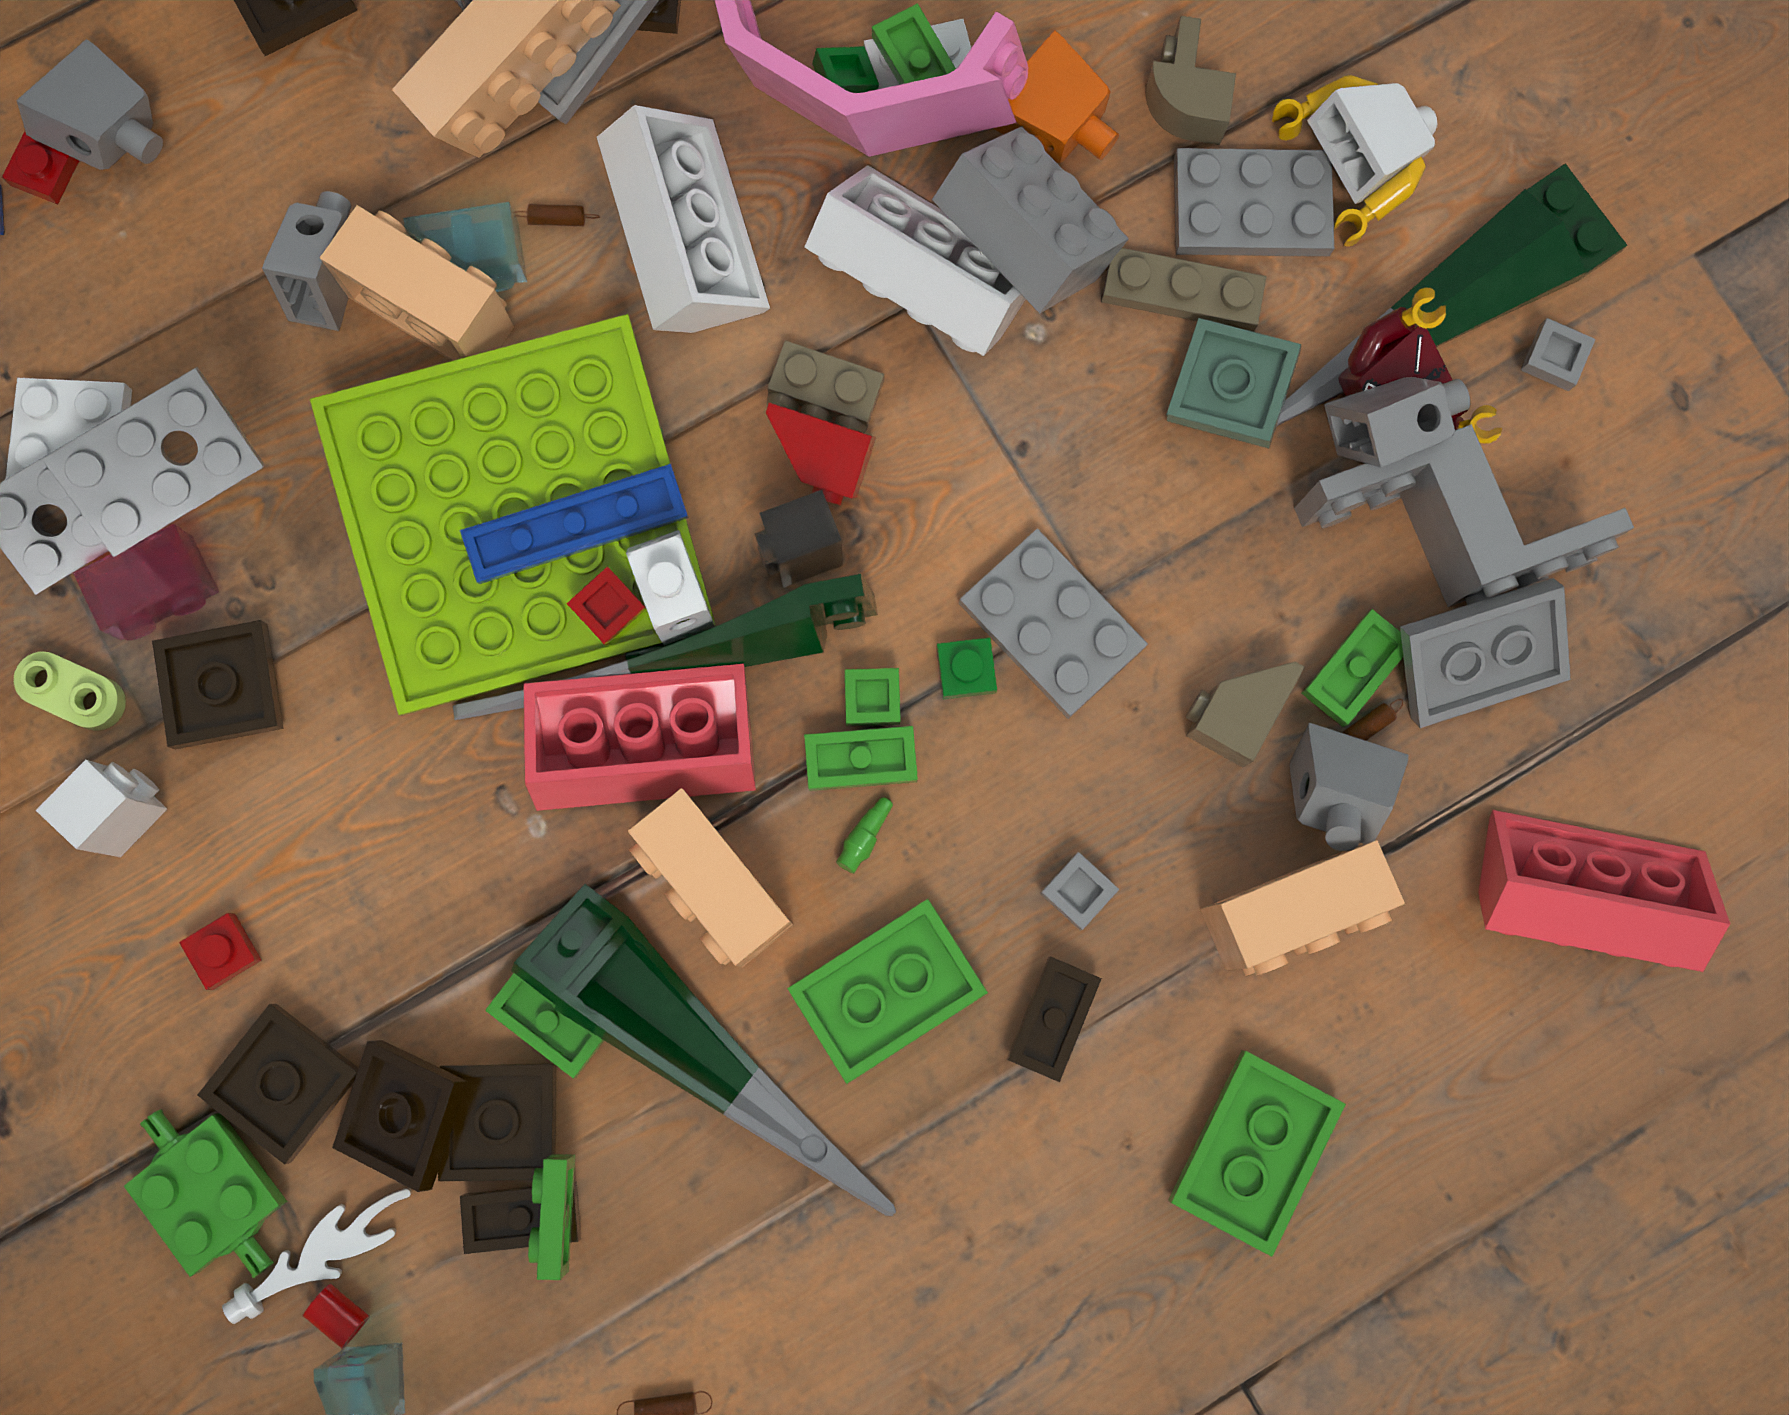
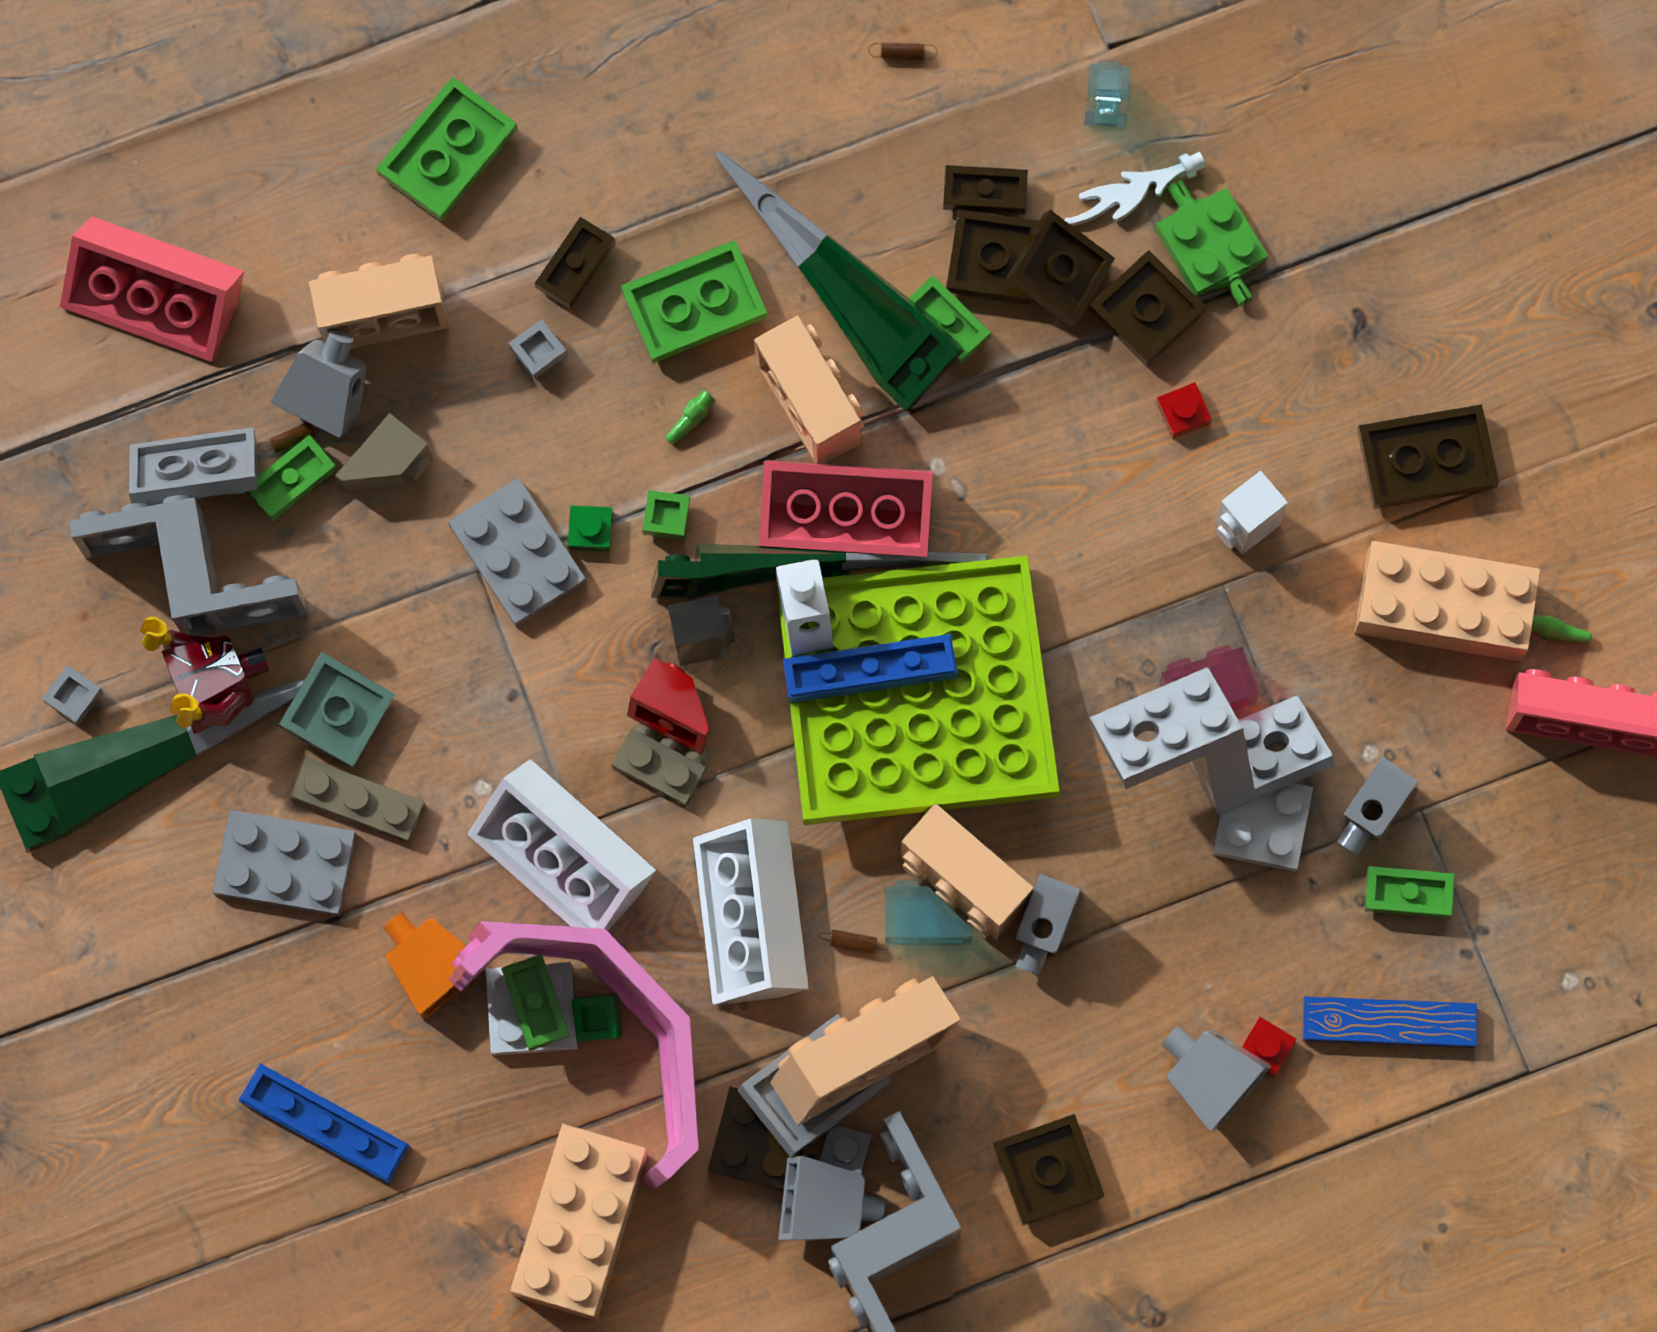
camera: 160 degrees left, 5 degrees down
(66, 690) = (1277, 621): yellowish green plate -> none
(217, 684) = (1163, 603): dark brown plate -> none
(336, 1316) = (1125, 145): red hinge -> none
(551, 1241) = (954, 196): bright green plate -> none
(606, 605) = (855, 602): red plate -> none
(860, 758) = (683, 471): bright green plate -> none
(1029, 218) = (471, 854): light grey brick -> none
(1186, 98) = (321, 951): dark tan brick -> none
(1370, 138) = (181, 887): white torso -> none
(1395, 419) = (227, 633): light grey torso -> none

